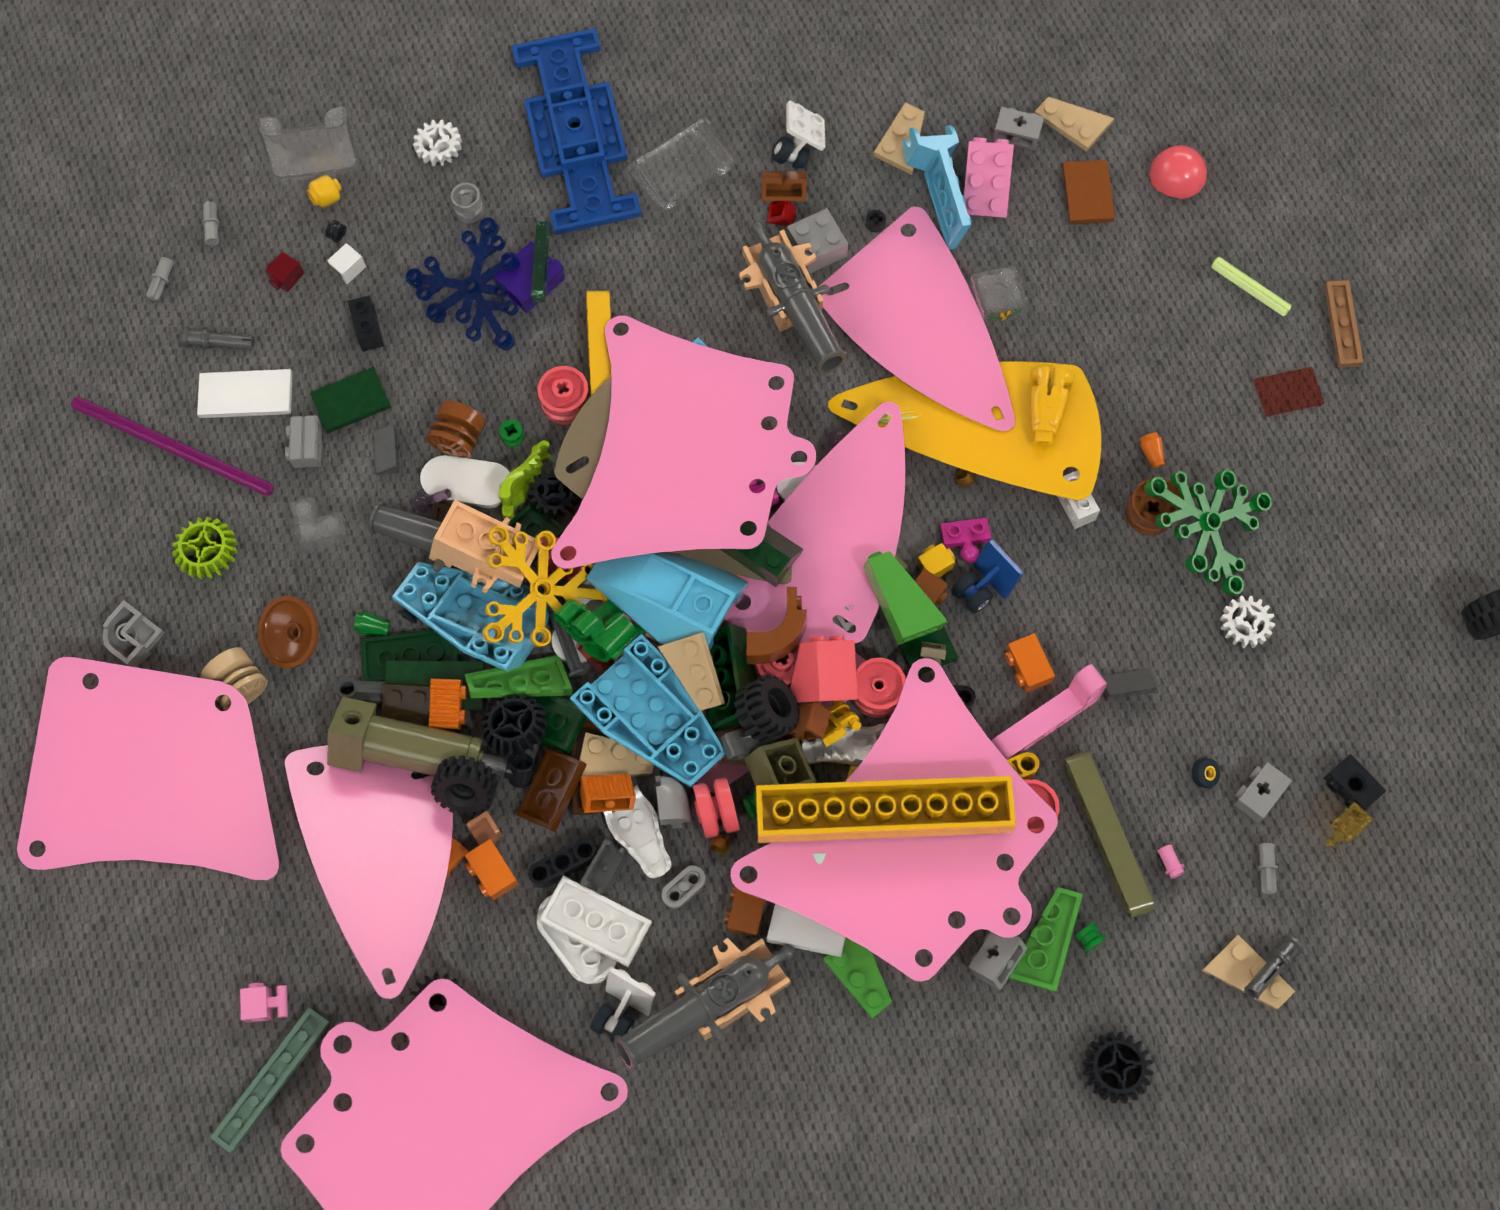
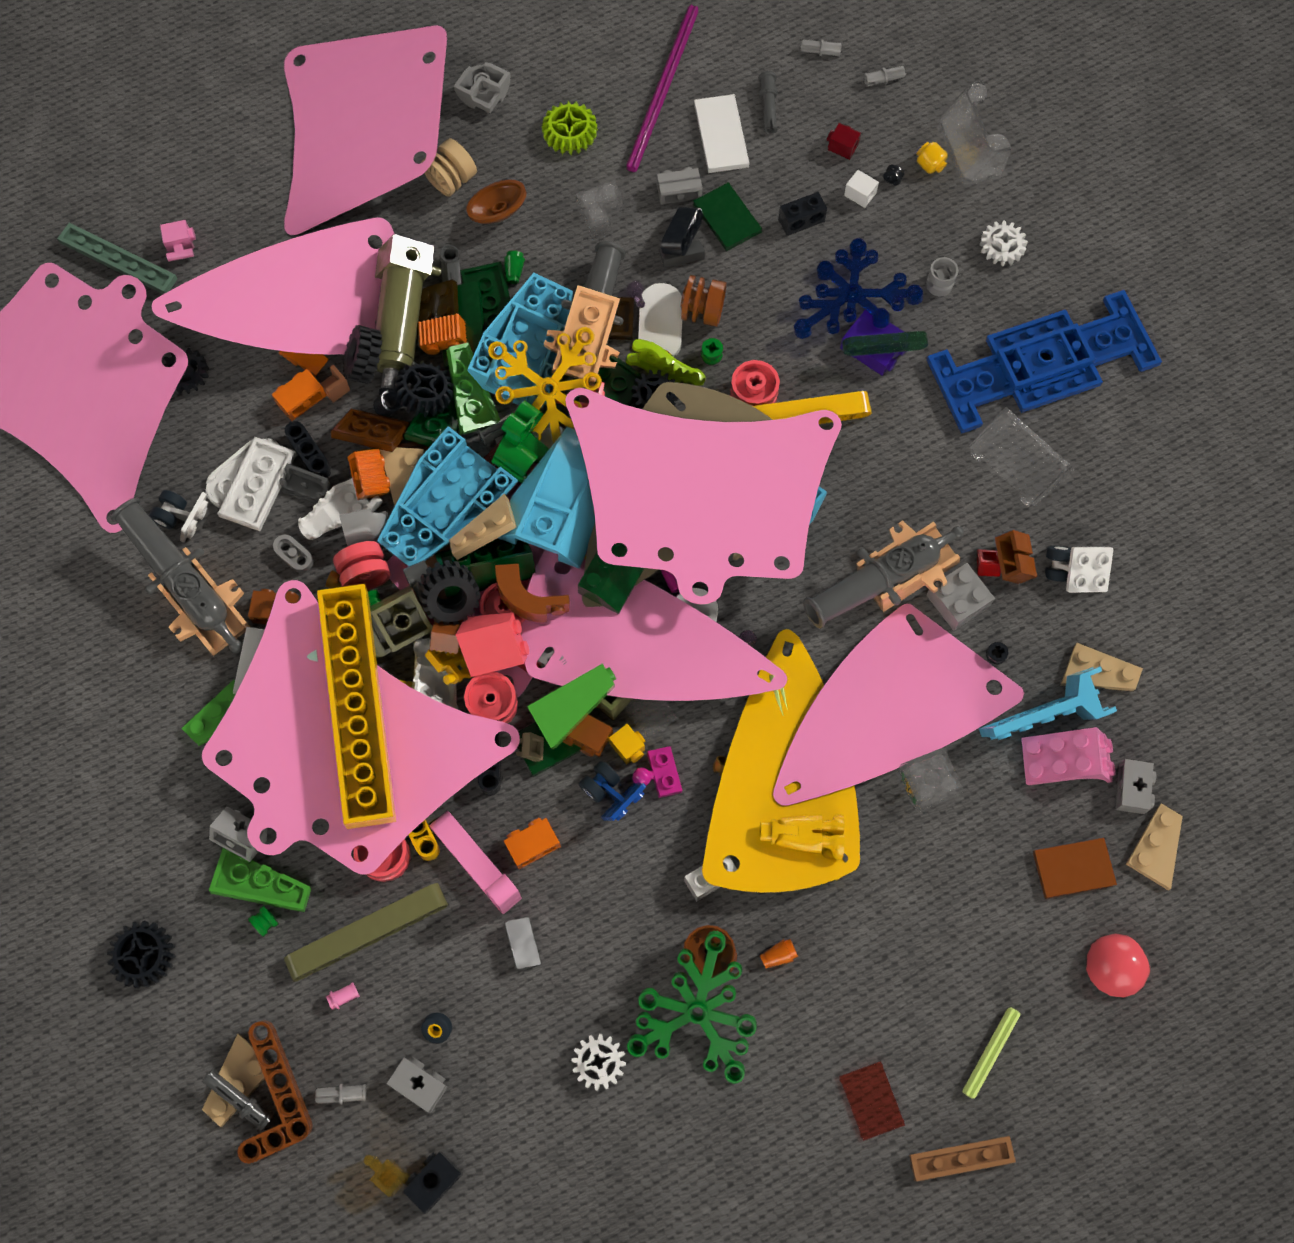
camera: 80 degrees right, 0 degrees up
(364, 443) = (681, 231): none -> black beam
(1268, 923) = (279, 1094): none -> dark orange beam

